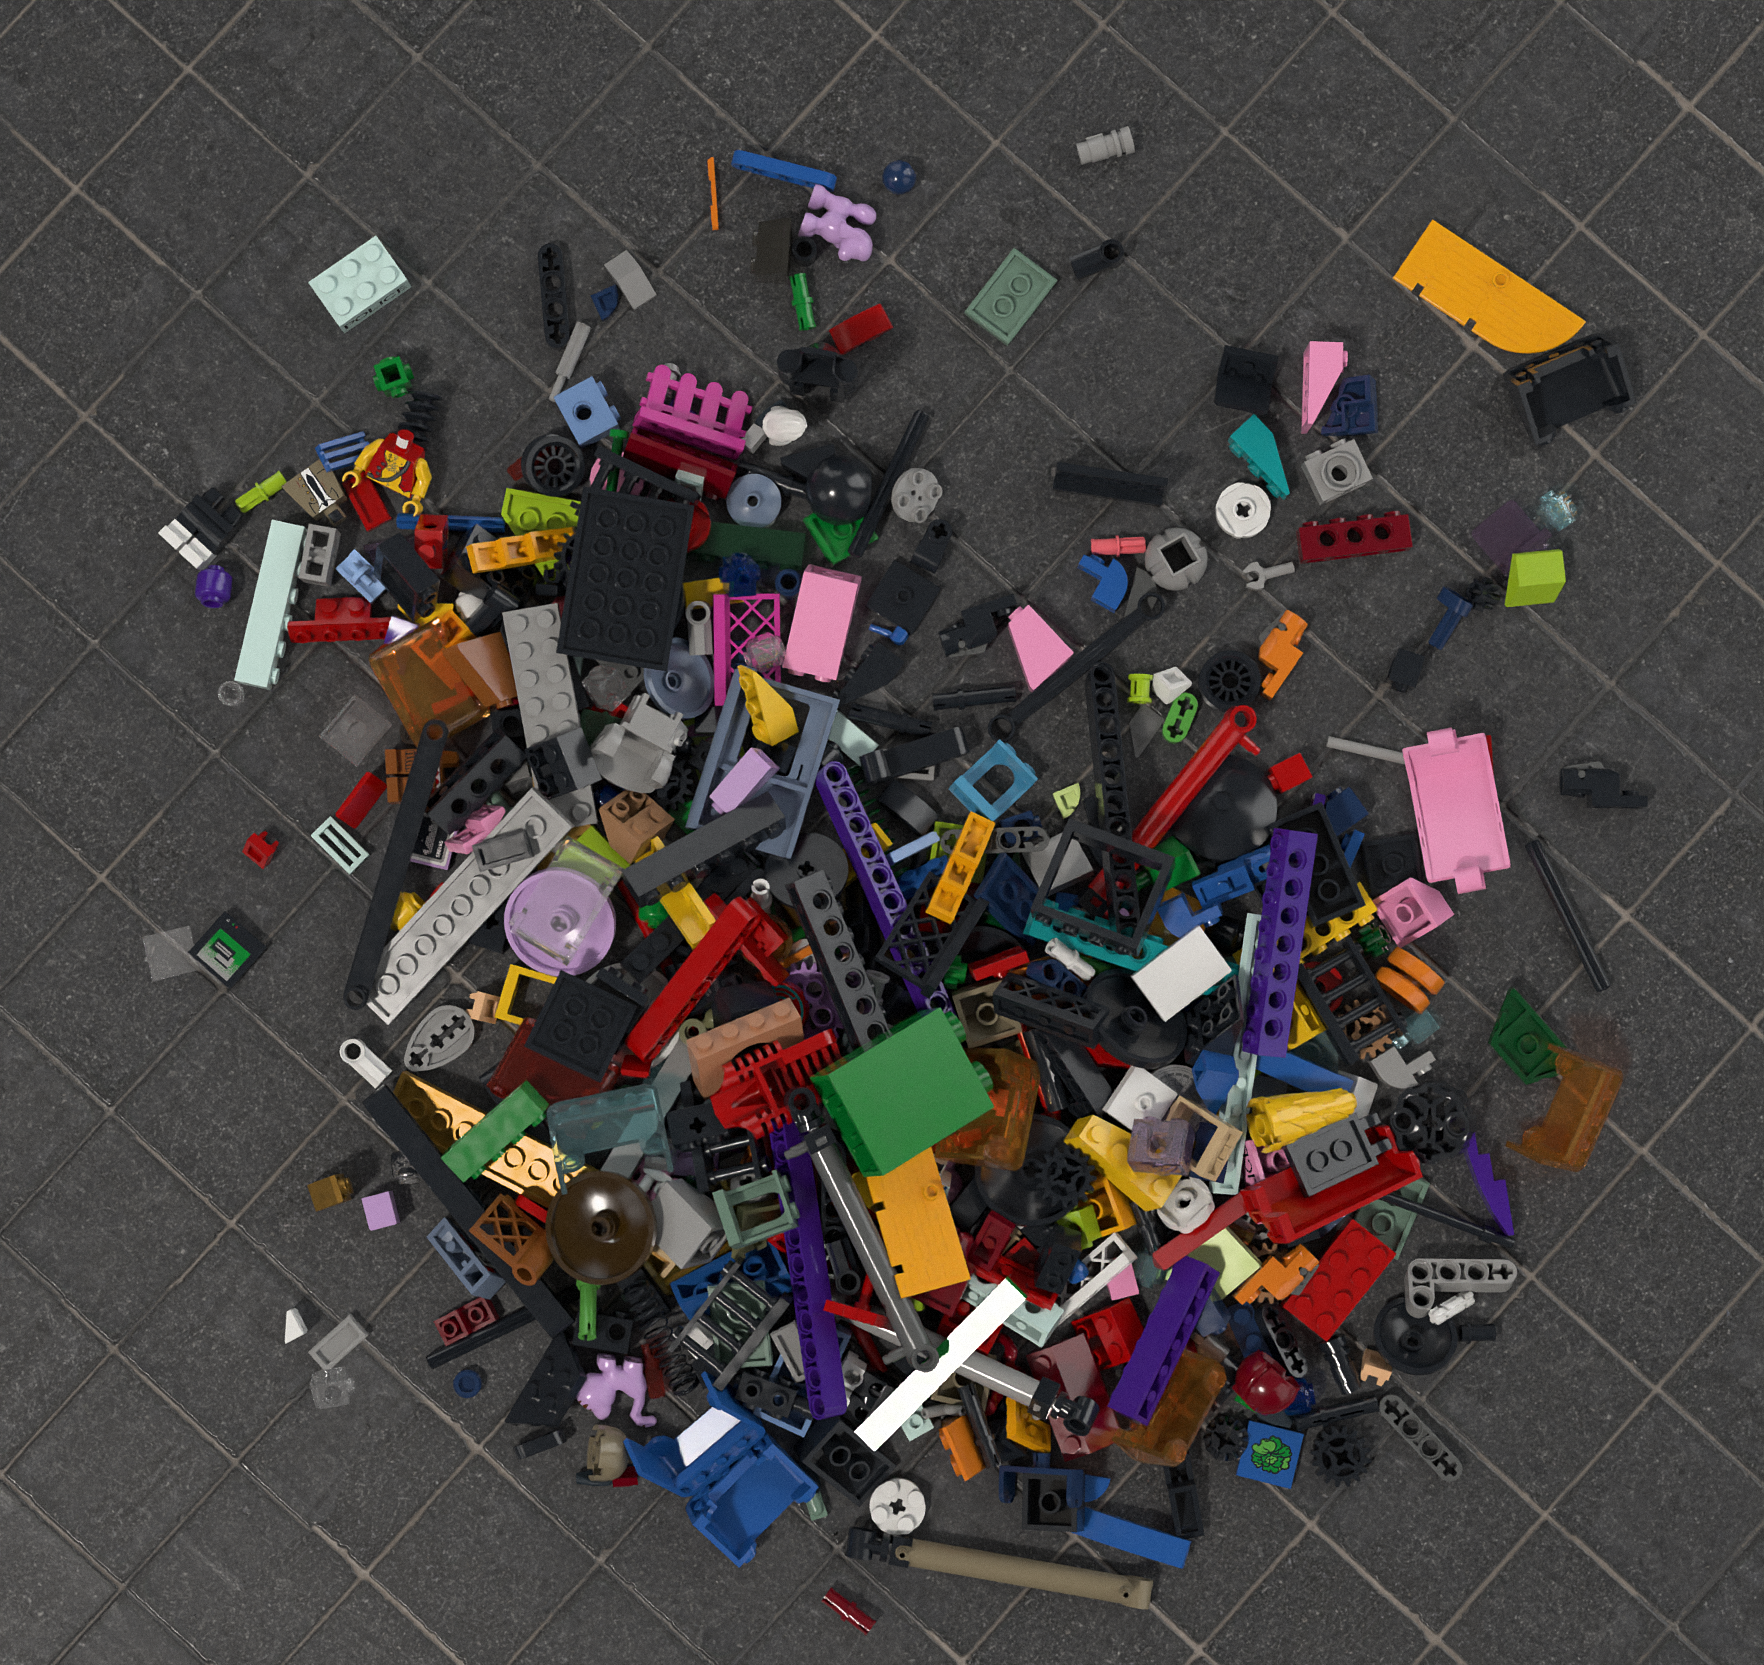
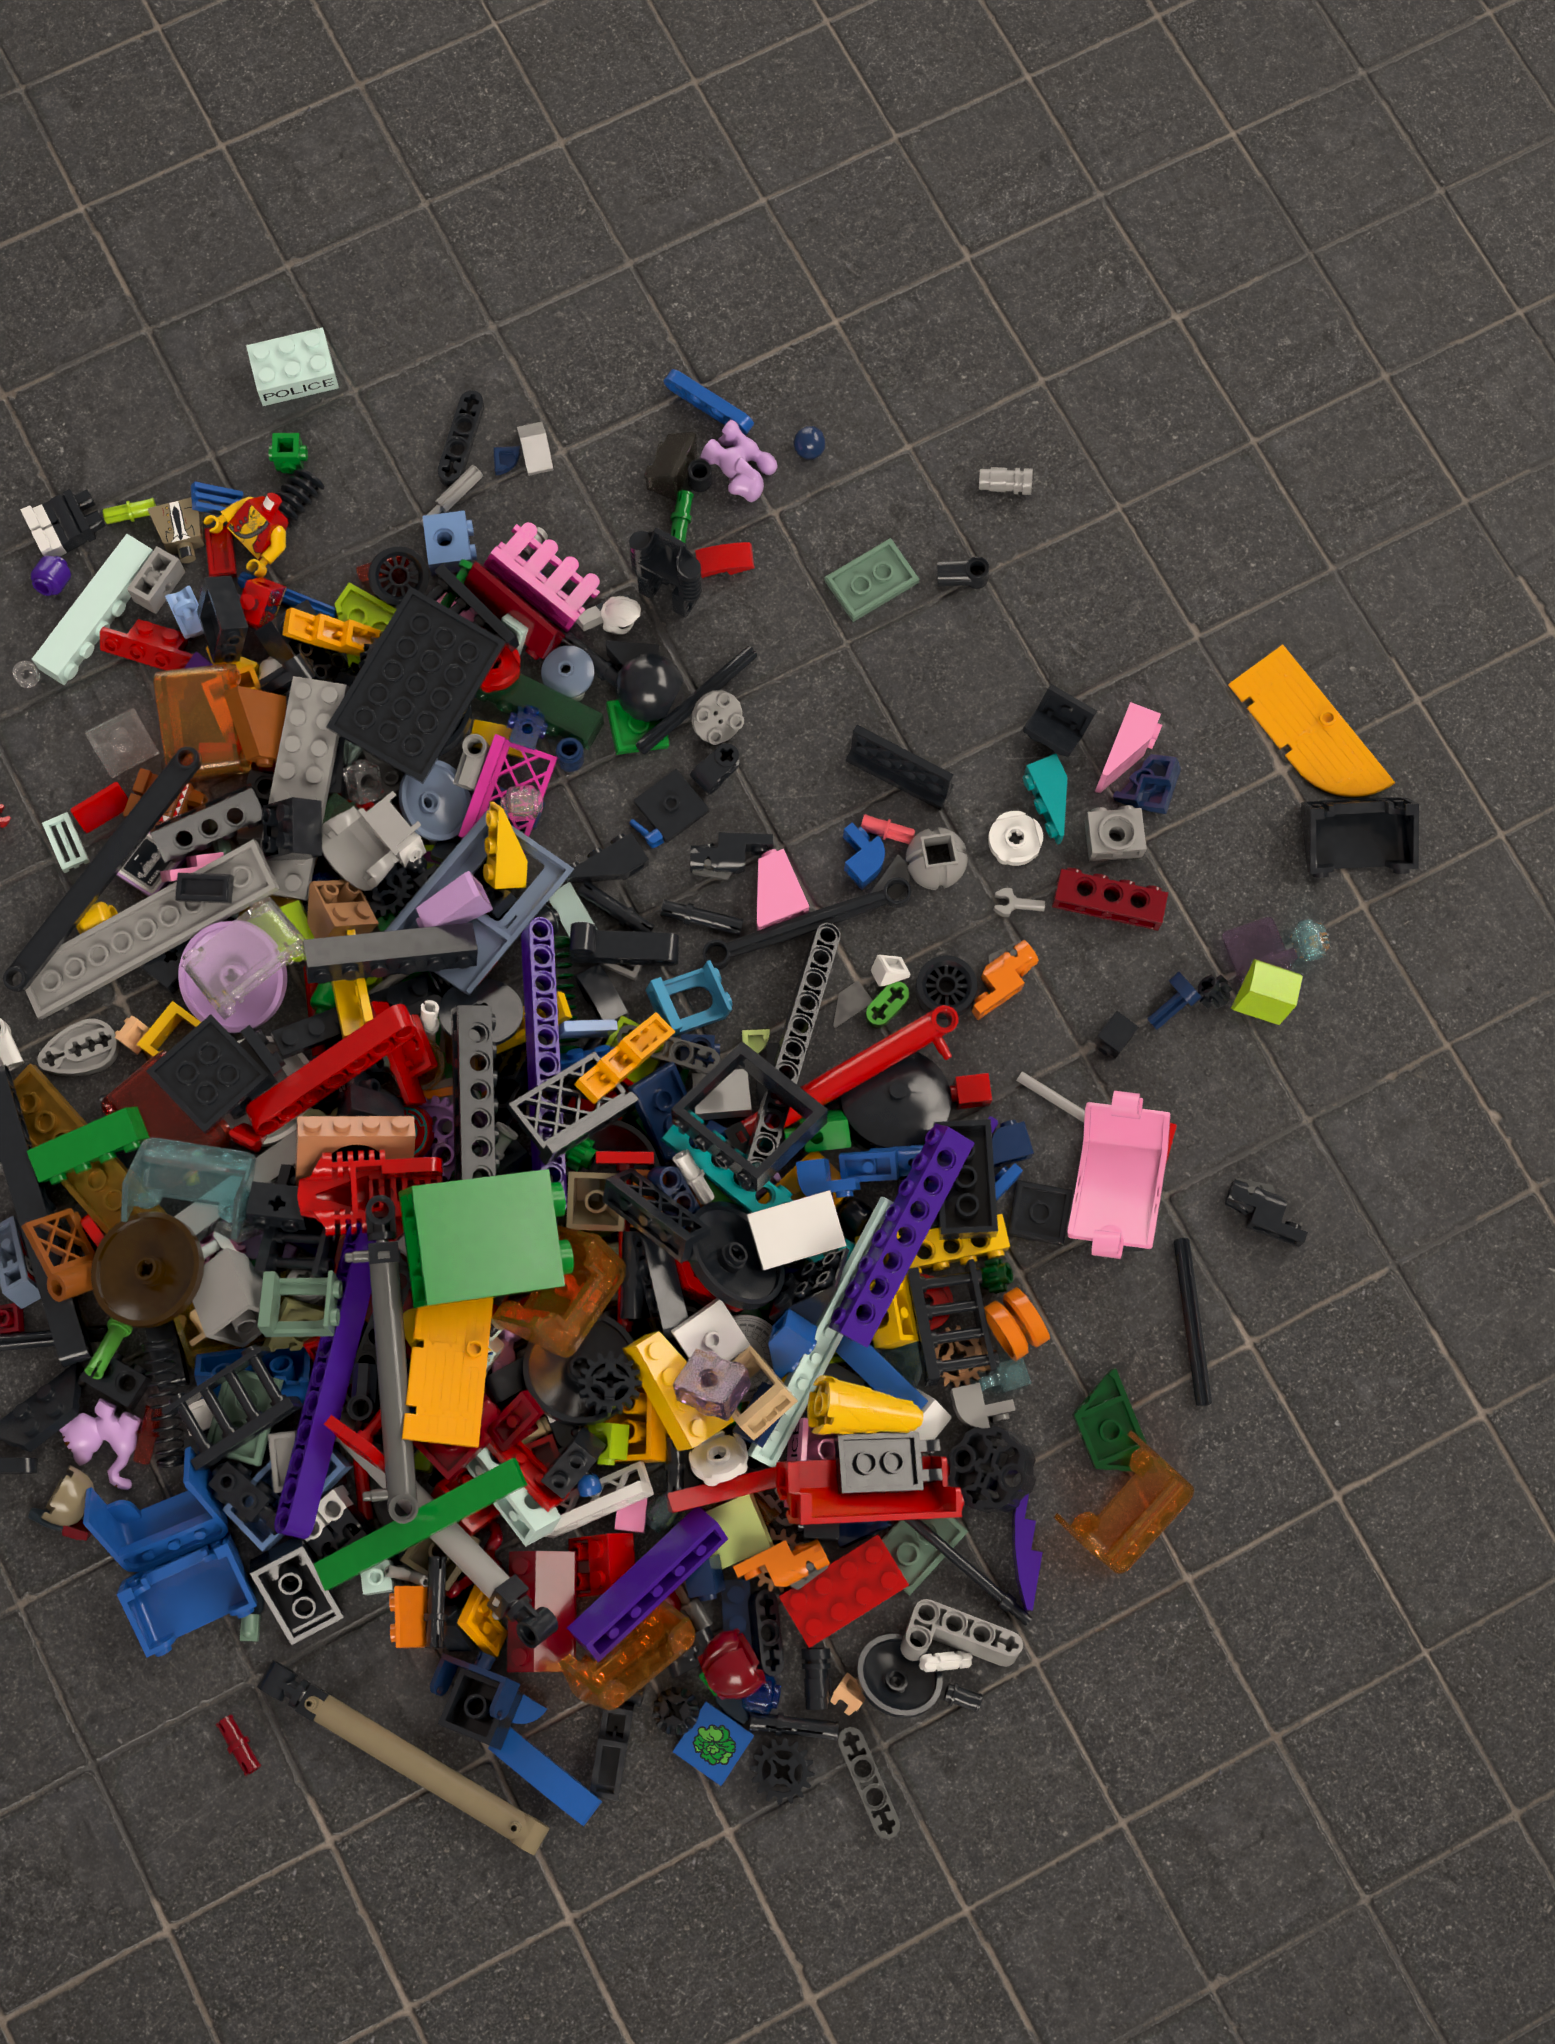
camera: 15 degrees right, 10 degrees down
(714, 212) = (634, 413): orange piece -> none
(821, 622) = (586, 799): bright pink slope -> none
(912, 1499) = (311, 1658): white plate -> none
(1140, 688) = (859, 963): lime bush -> none
(1411, 910) = (1043, 1260): bright pink slope -> none

